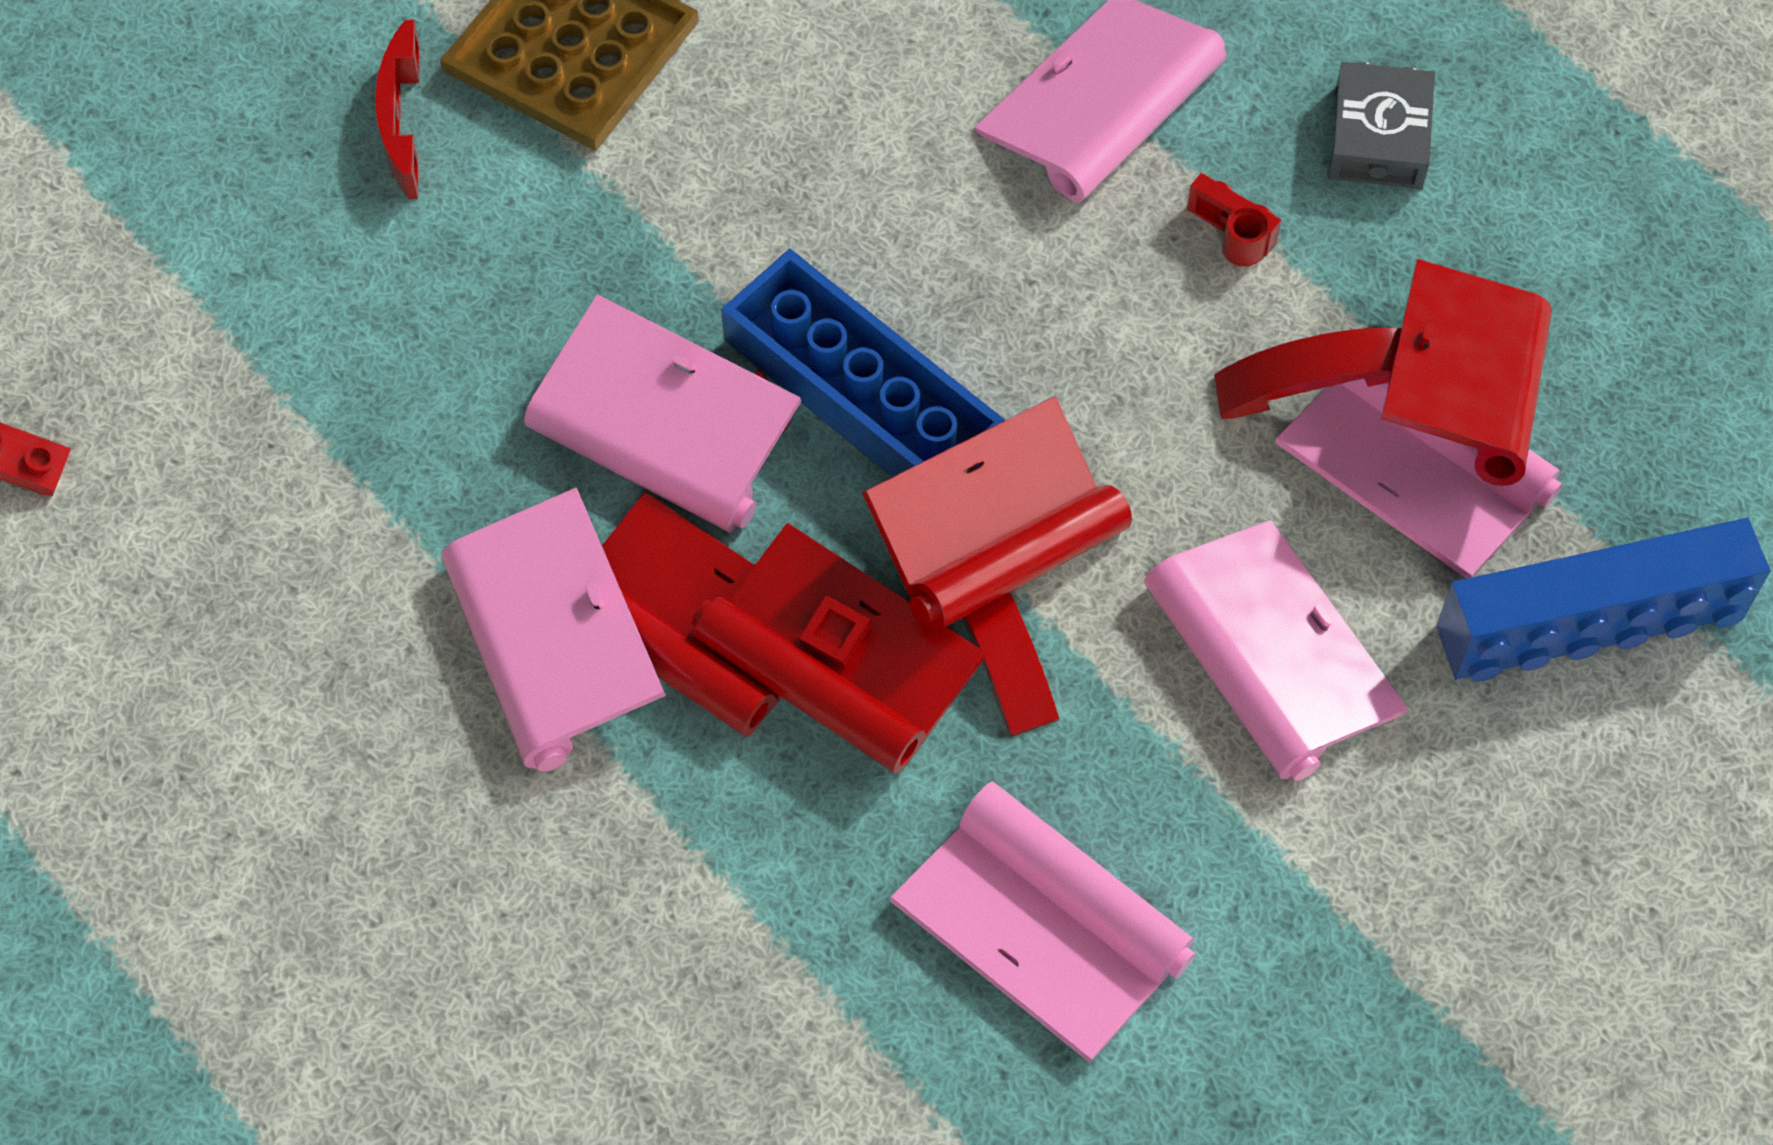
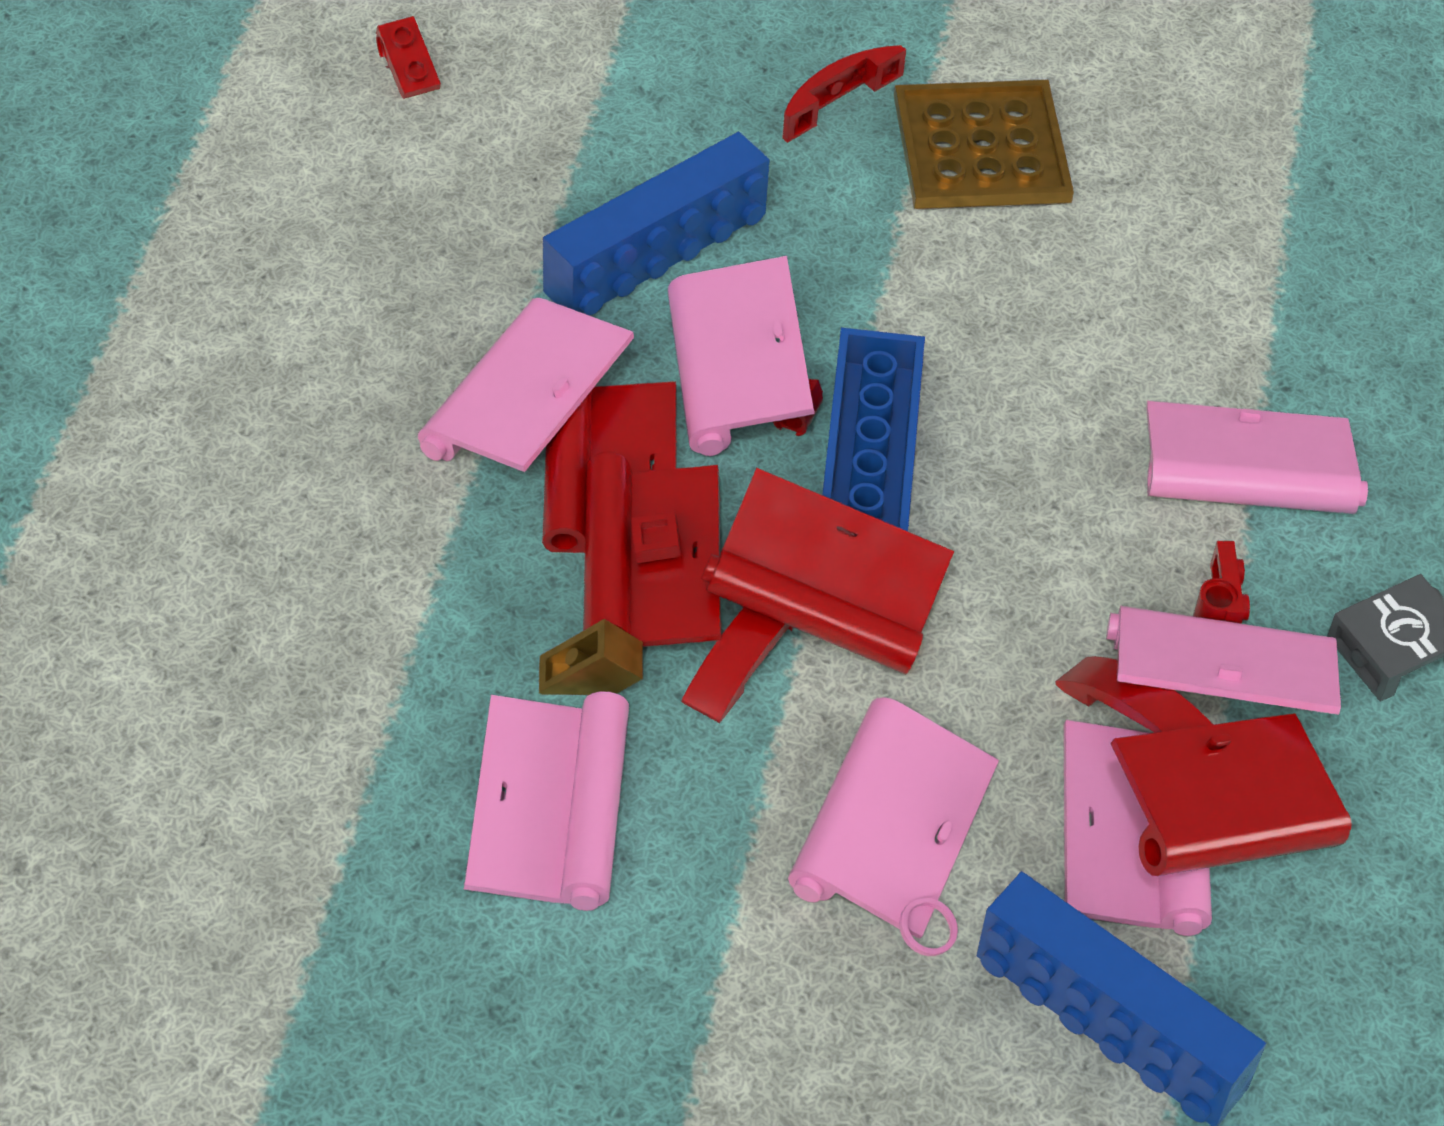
camera: 50 degrees right, 10 degrees down
(453, 381) = (656, 225): none -> blue brick
(921, 786) = (592, 662): none -> pearl gold slope
(1321, 270) = (1226, 659): none -> bright pink door
(1392, 714) = (911, 942): none -> bright pink piece

